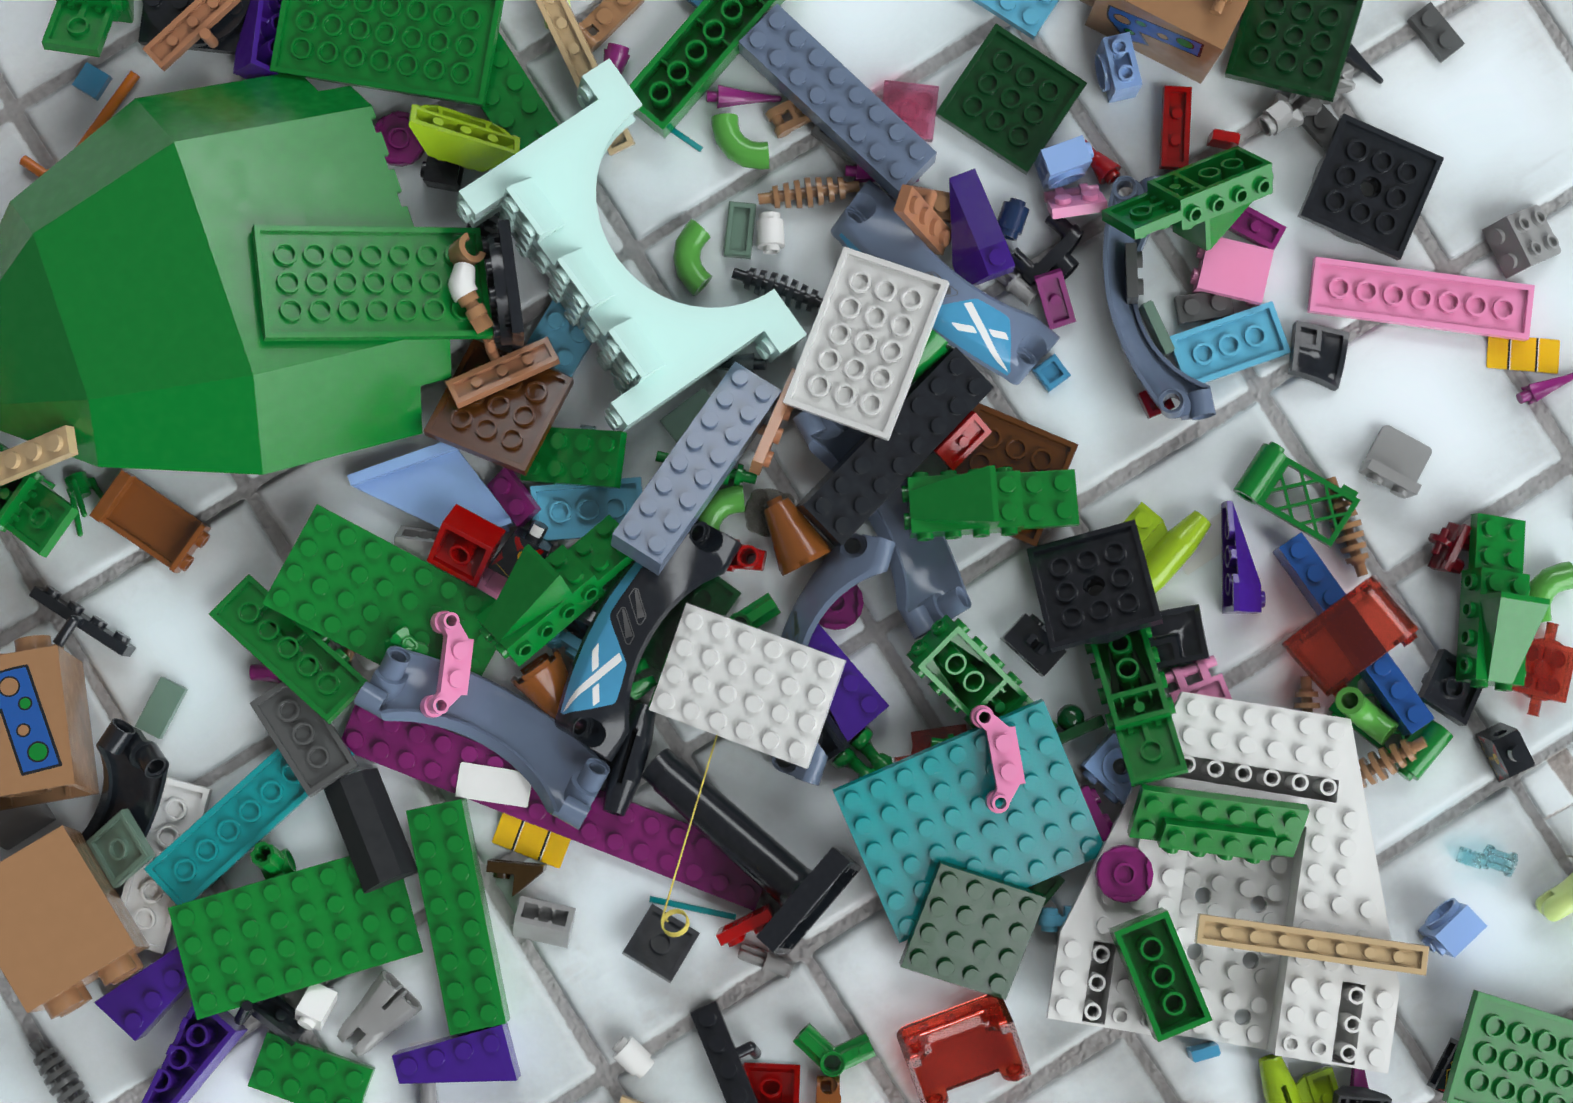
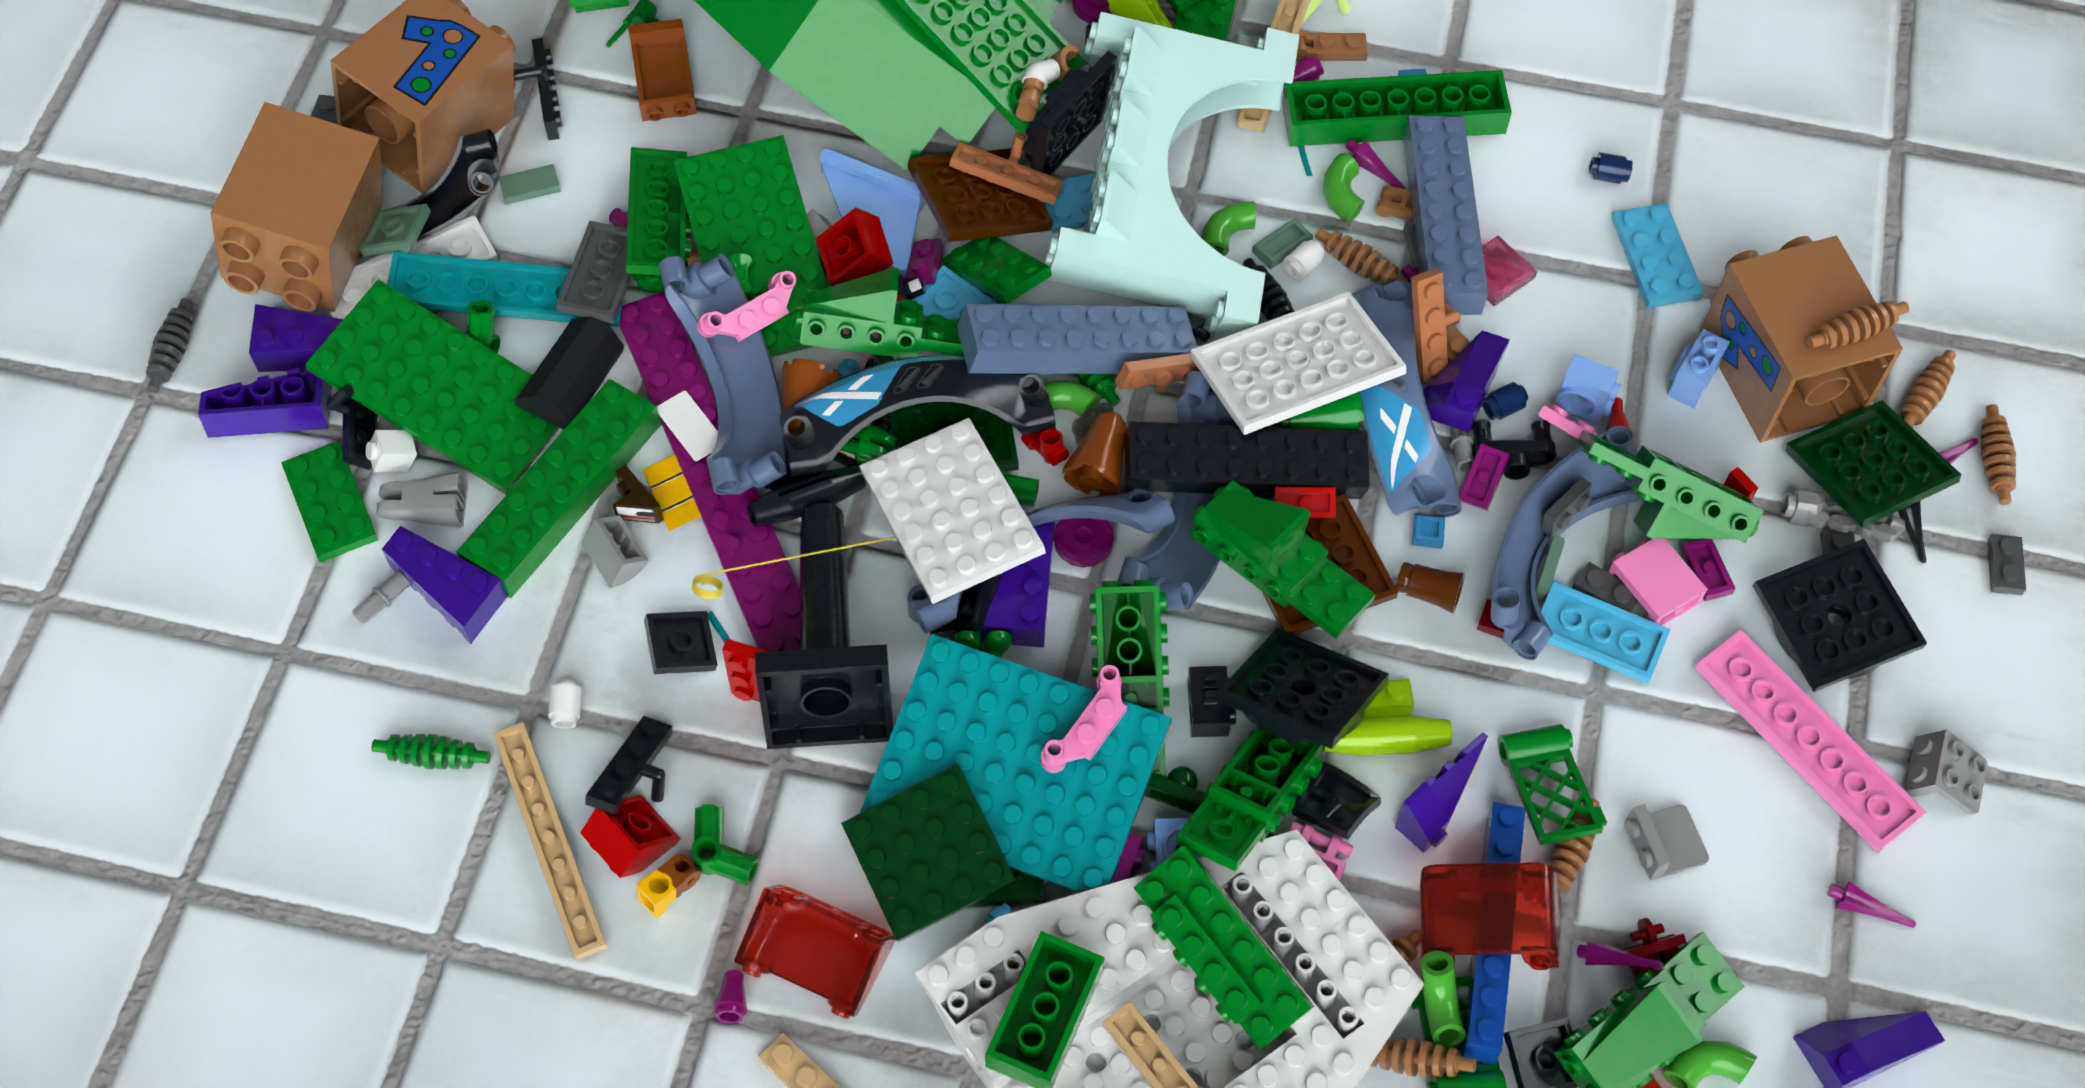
camera: 45 degrees right, 25 degrees down
(765, 960) = (744, 734): light grey axle -> none
(1010, 99) = (1587, 317): dark green plate -> none
(1094, 418) = (1431, 585): none -> reddish brown plant
(1124, 873) = (1099, 915): magenta tile -> none
(1175, 127) = (1712, 444): red plate -> none
(1318, 354) = (1673, 702): black plate -> none
(1430, 581) = (1607, 955): none -> magenta piece
(1528, 355) = (1867, 865): yellow sticker -> none

